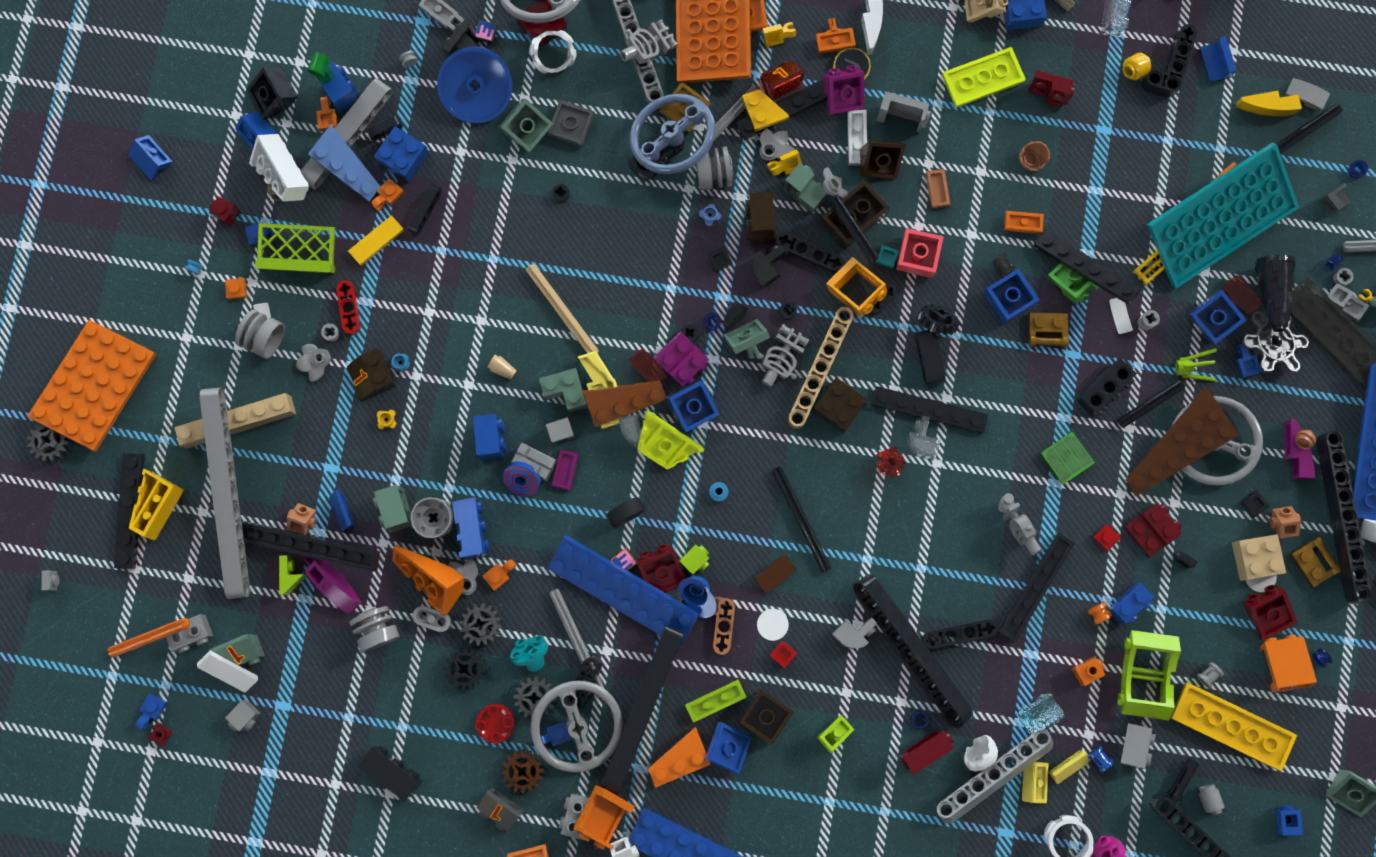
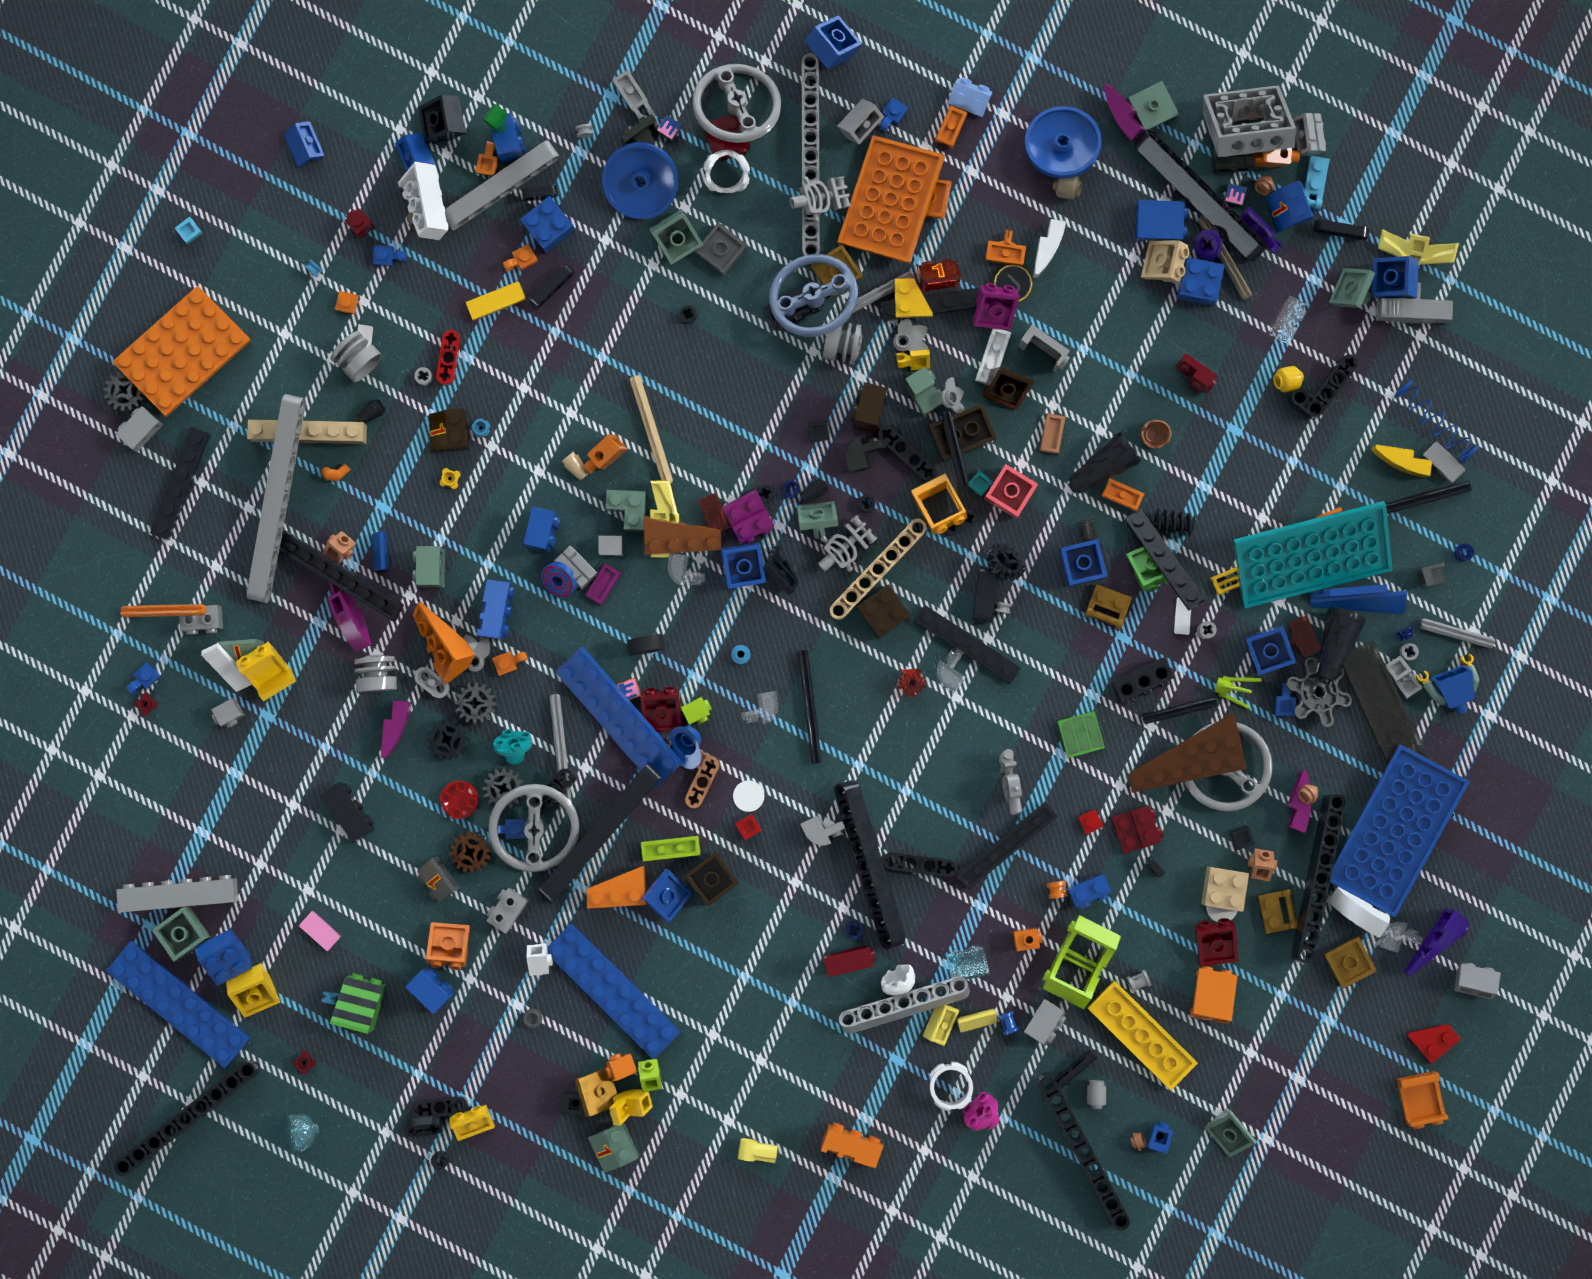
camera: 15 degrees right, 5 degrees up
(50, 580) = (86, 525): light grey plate -> none
(64, 271) = (188, 230): none -> medium azure plate
(73, 471) = (138, 428): none -> light grey brick
(154, 504) = (206, 486): yellow wedge -> none
(266, 662) = (266, 671): none -> yellow panel
(276, 452) = (335, 475): none -> orange arm
(287, 581) = (308, 601): lime slope -> none
(291, 381) = (371, 411): none -> black cone
(295, 264) = (408, 298): lime fence -> none
(310, 361) = (395, 399): light grey plate -> none
(341, 161) = (487, 213): medium blue wing -> none
(410, 675) = (394, 728): none -> magenta slope
(422, 518) = (454, 583): light grey wheel -> none
(531, 340) = (610, 447): none -> orange torso
(601, 817) = (529, 918): orange panel -> none
(665, 443) = (705, 592): neon yellow wing -> none
(710, 209) = (829, 386): medium blue plate -> none
(729, 400) = (780, 571): none -> black wing
(763, 535) = (768, 709): none -> clear brick
(775, 34) = (950, 228): yellow plate -> none
(775, 574) = (767, 750): reddish brown slope -> none
(835, 733) = (770, 916): lime slope -> none
(950, 364) = (1002, 608): none -> light grey bush
(983, 77) = (1136, 339): neon yellow plate -> none
(1001, 193) = (1109, 461): none -> black cone
(1079, 229) = (1174, 522): none -> black piece
(1218, 60) = (1369, 399): blue panel -> none
(1268, 831) = (1138, 1141): none -> nougat plate
(1282, 242) = (1362, 598): none -> blue wedge
(1322, 658) = (1249, 1001): clear blue bush -> none
(1326, 79) = (1462, 458): none -> blue piece

